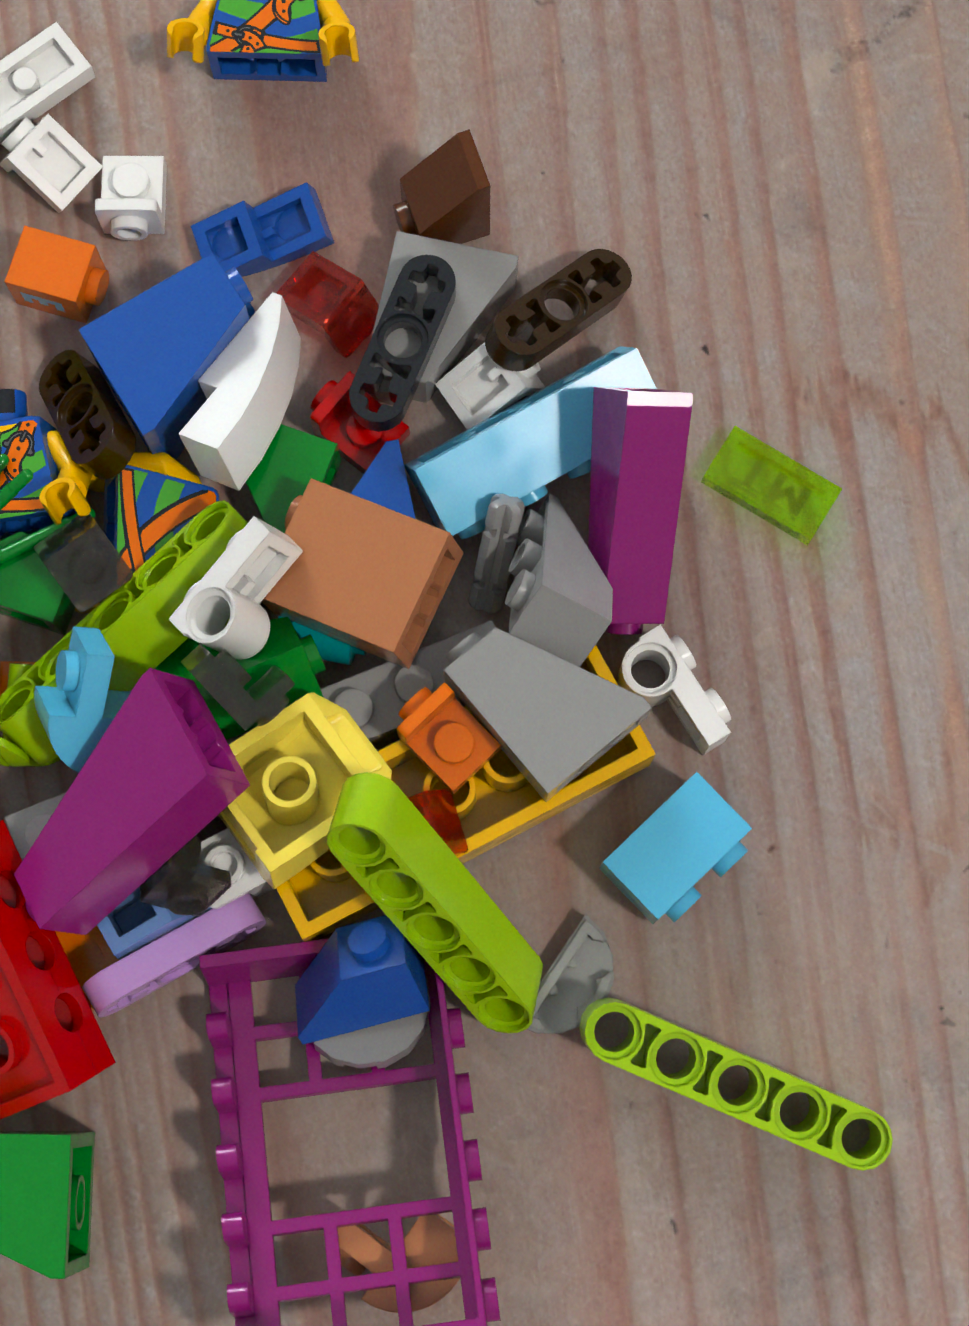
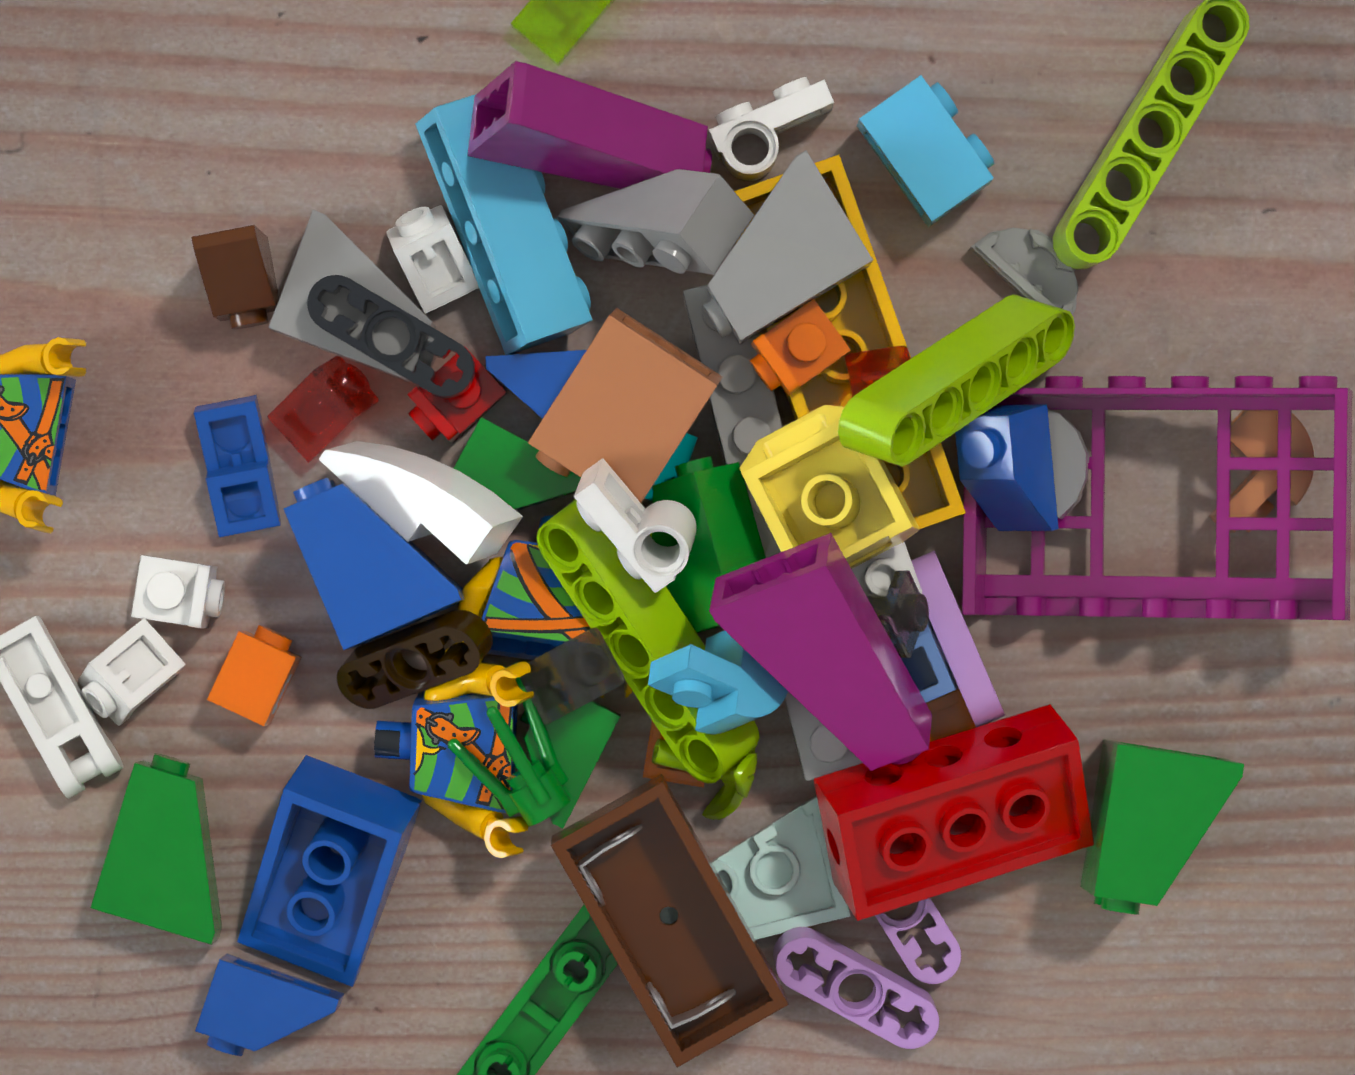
camera: 80 degrees left, 10 degrees up
(225, 681) = (742, 530): clear smoke bracket -> none
(496, 553) = (612, 277): light grey axle -> none
(548, 330) = (371, 203): dark brown beam -> none

